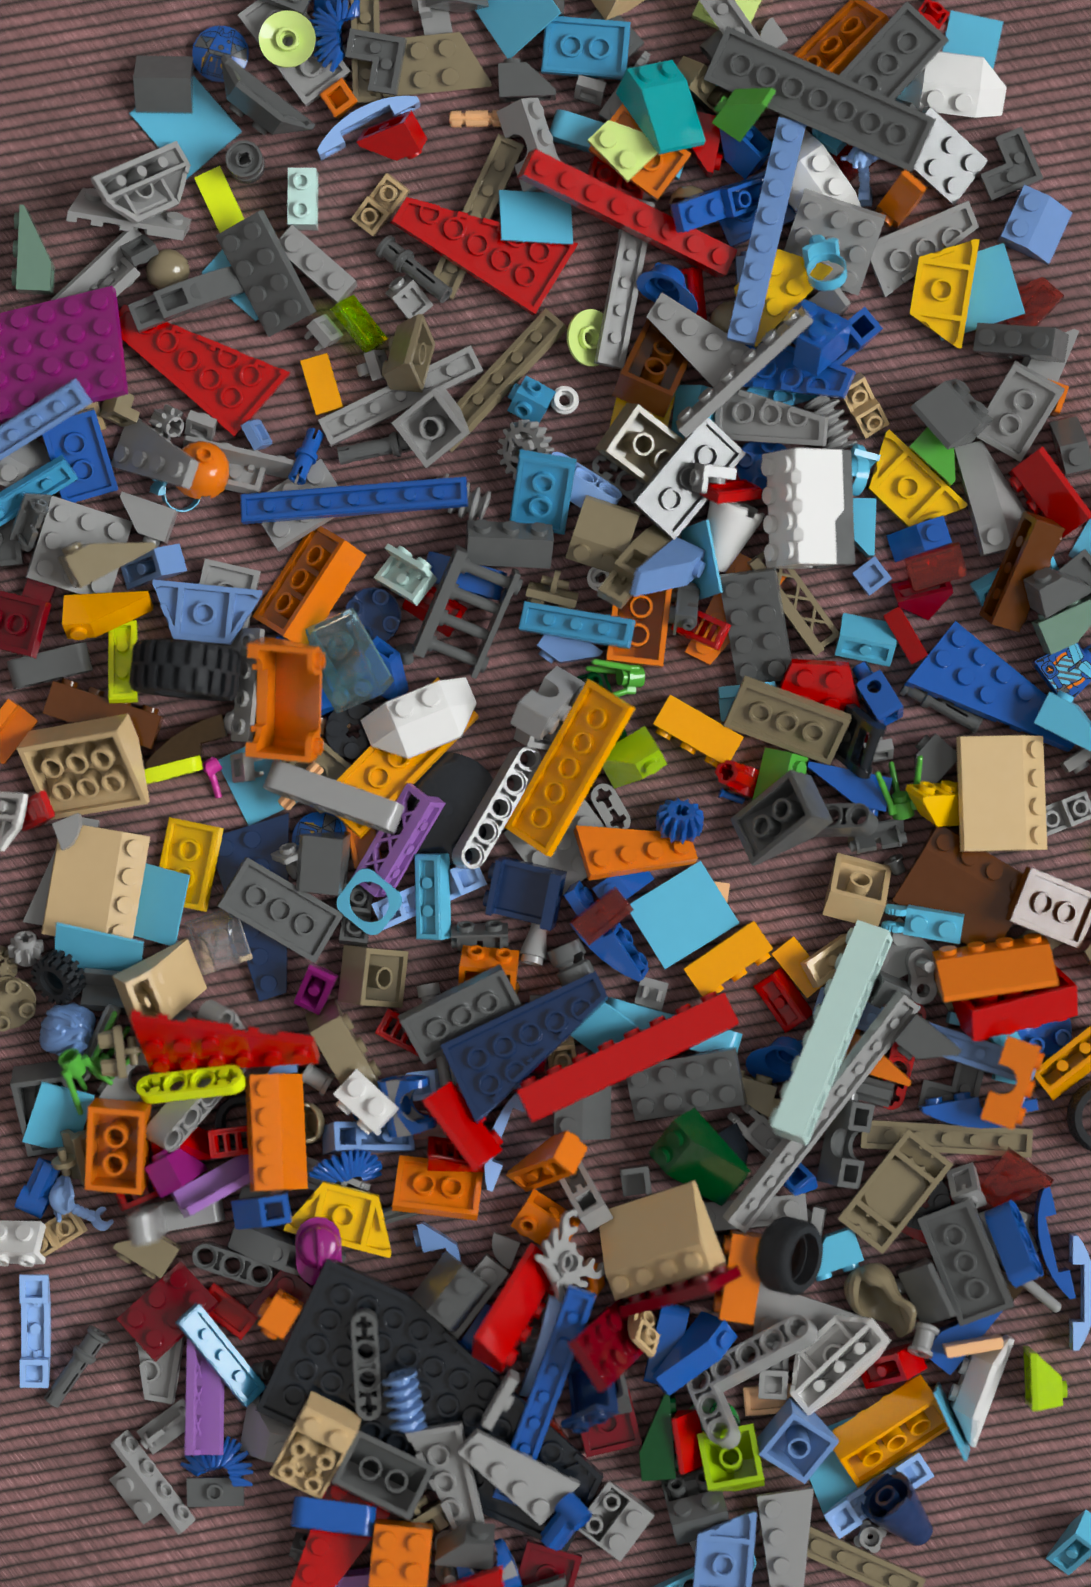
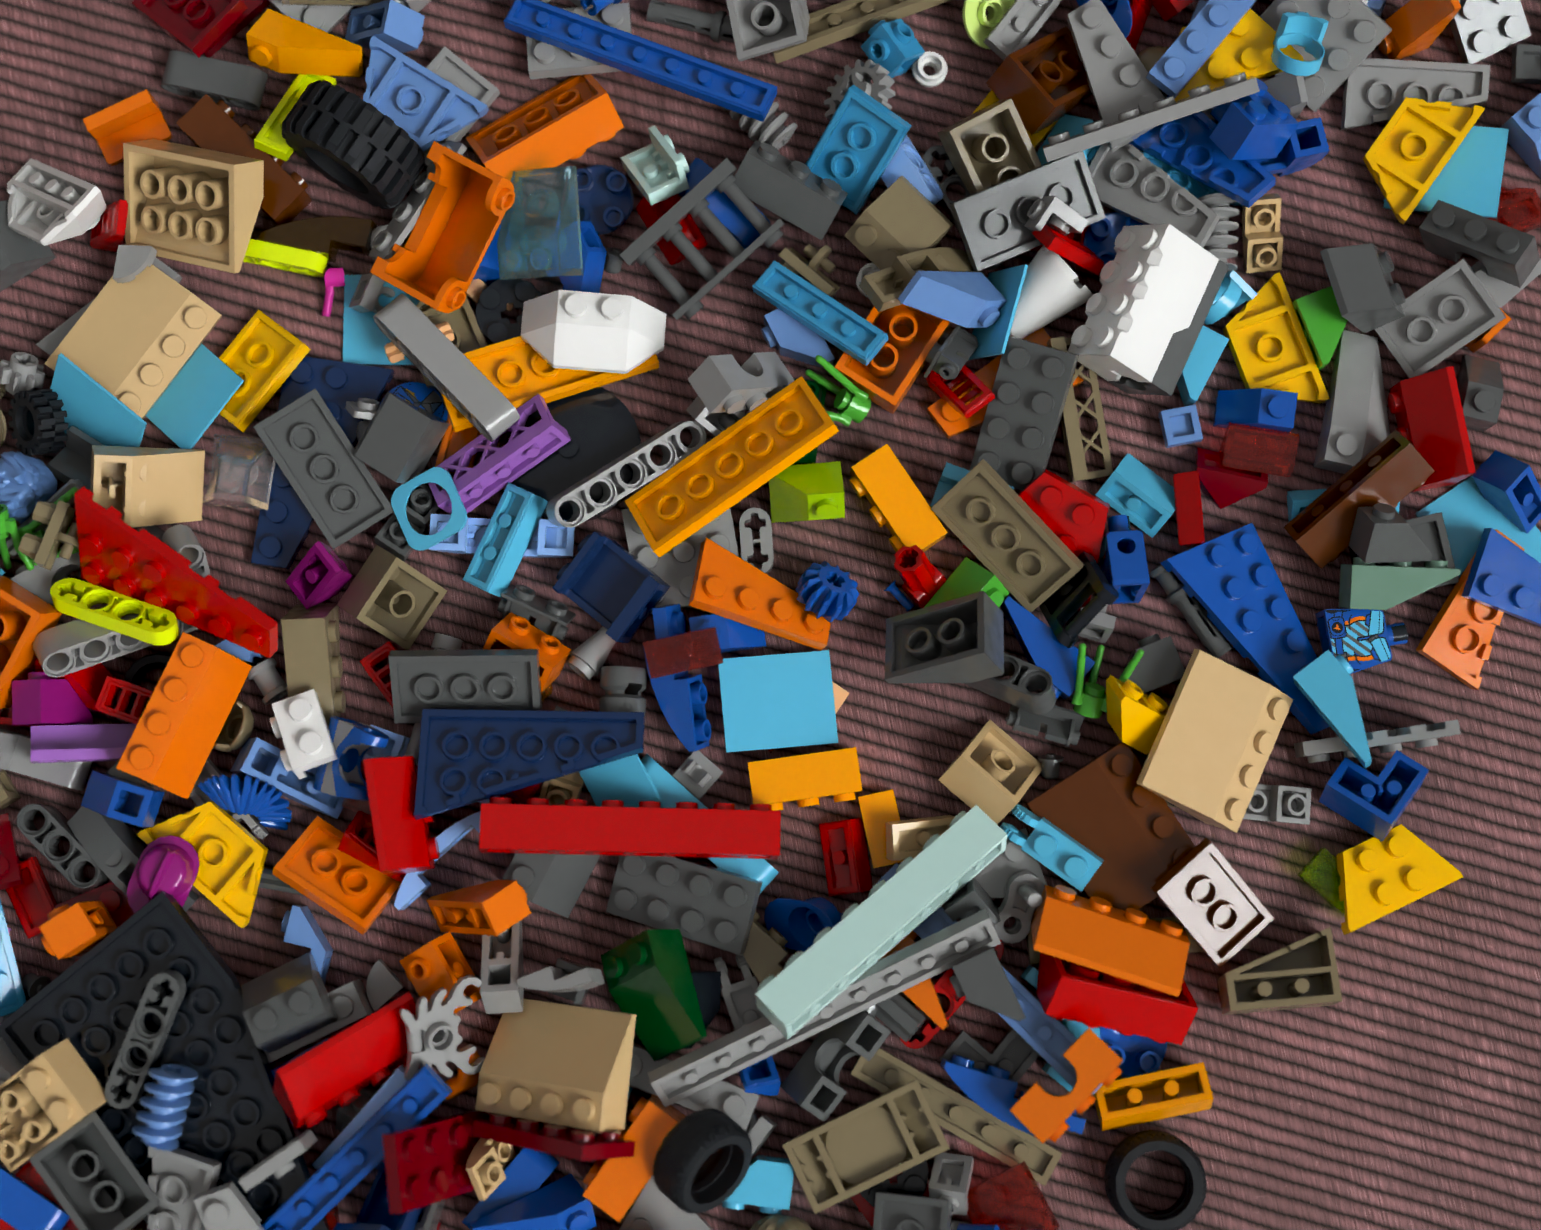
camera: 25 degrees right, 5 degrees down
(625, 1185) = (554, 980): none -> light grey slope

